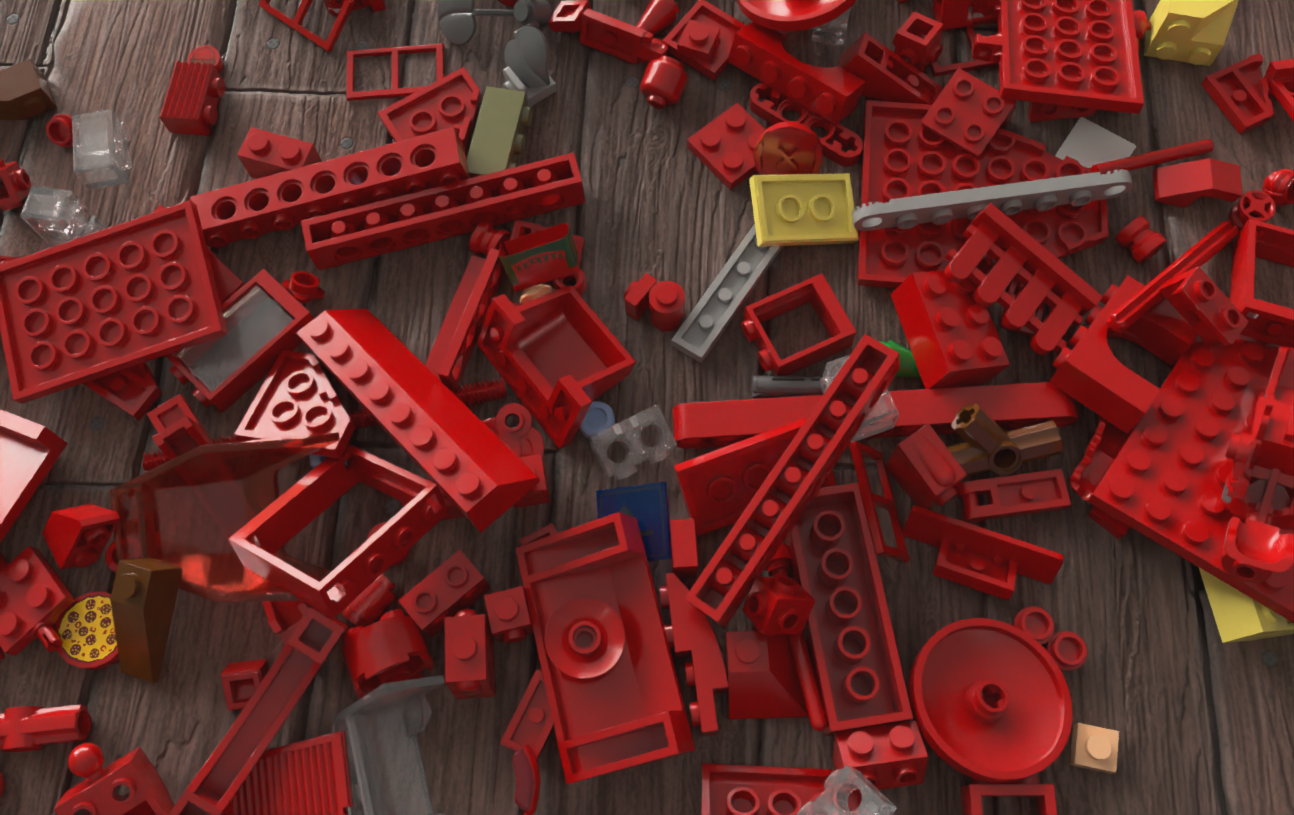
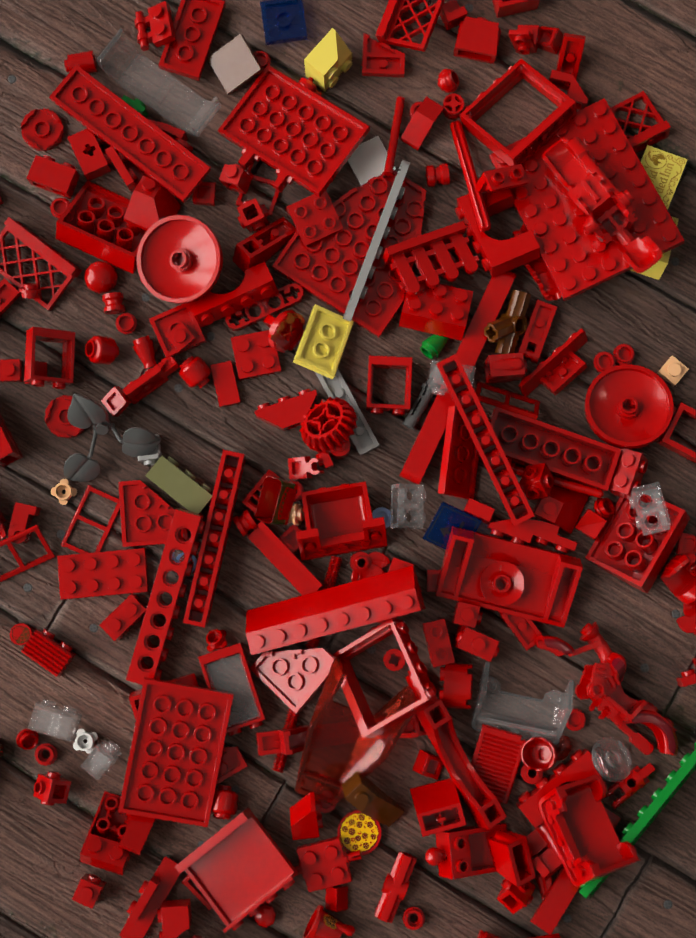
camera: 65 degrees left, 15 degrees up
(51, 162) = (39, 754): none -> red plate
(65, 410) = (224, 803): none -> red head
(92, 192) = (79, 741): none -> white plate
(173, 729) = (437, 807): none -> red slope
(329, 108) = (103, 573): none -> red plate
(418, 18) = (63, 485): none -> light nougat plate
(609, 274) = (303, 467): none -> red plate
(670, 129) = (225, 384): none -> red tile
(681, 221) = (288, 411): none -> red slope
(686, 264) = (326, 422): none -> red gear
(762, 742) = (590, 524): none -> red slope
(801, 749) = (604, 507): none -> red plate

